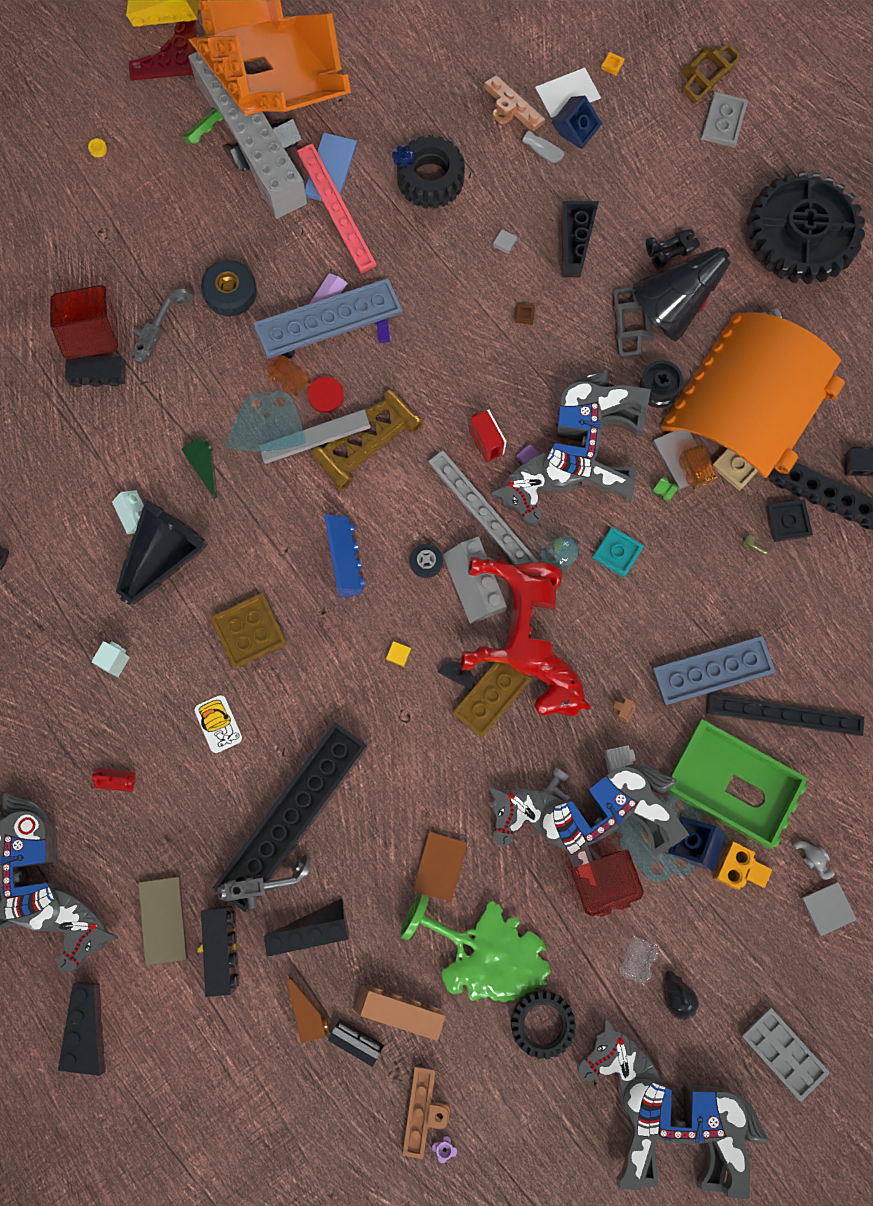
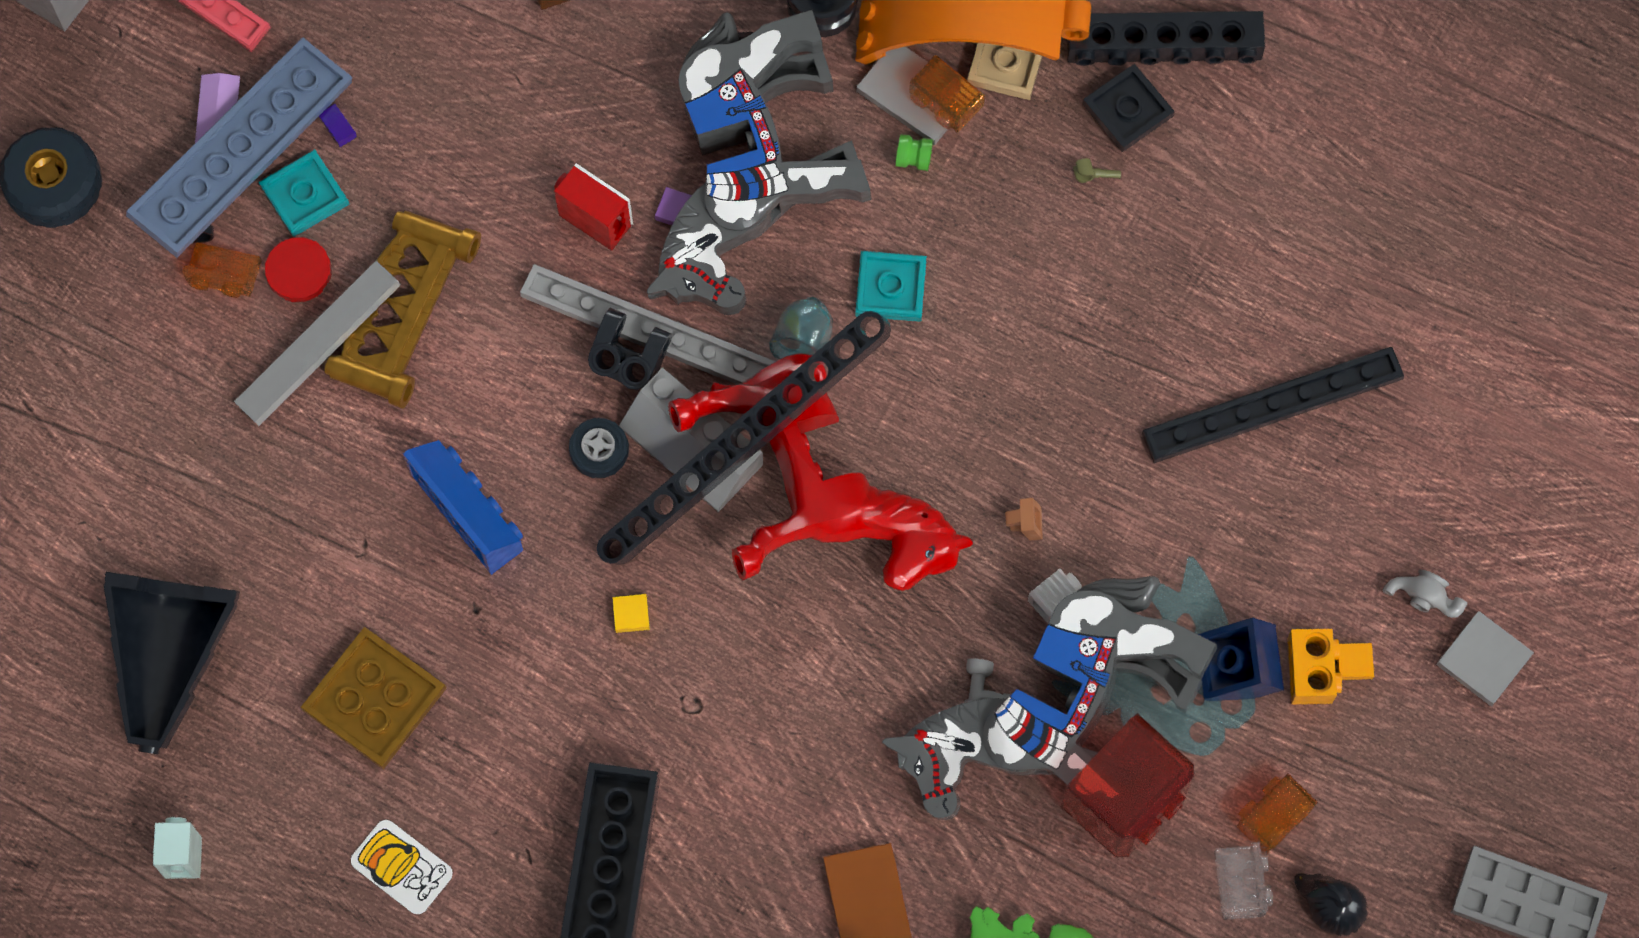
camera: 25 degrees left, 5 degrees down
(129, 508) = (80, 606): light aqua brick -> none
(202, 461) = (150, 469): dark green slope -> none
(256, 433) = (218, 385): clear light blue piece -> none
(348, 357) = (304, 193): none -> teal tile
(453, 672) = (740, 596): black plate -> none
(458, 527) = (621, 371): none -> black piece
(491, 698) = (811, 605): pearl gold plate -> none
(508, 595) = (759, 433): none -> black beam
(675, 934) = (1276, 813): none -> clear orange brick
(706, 770) = (1197, 544): bright green panel -> none
(713, 671) = (1130, 392): sand blue plate -> none

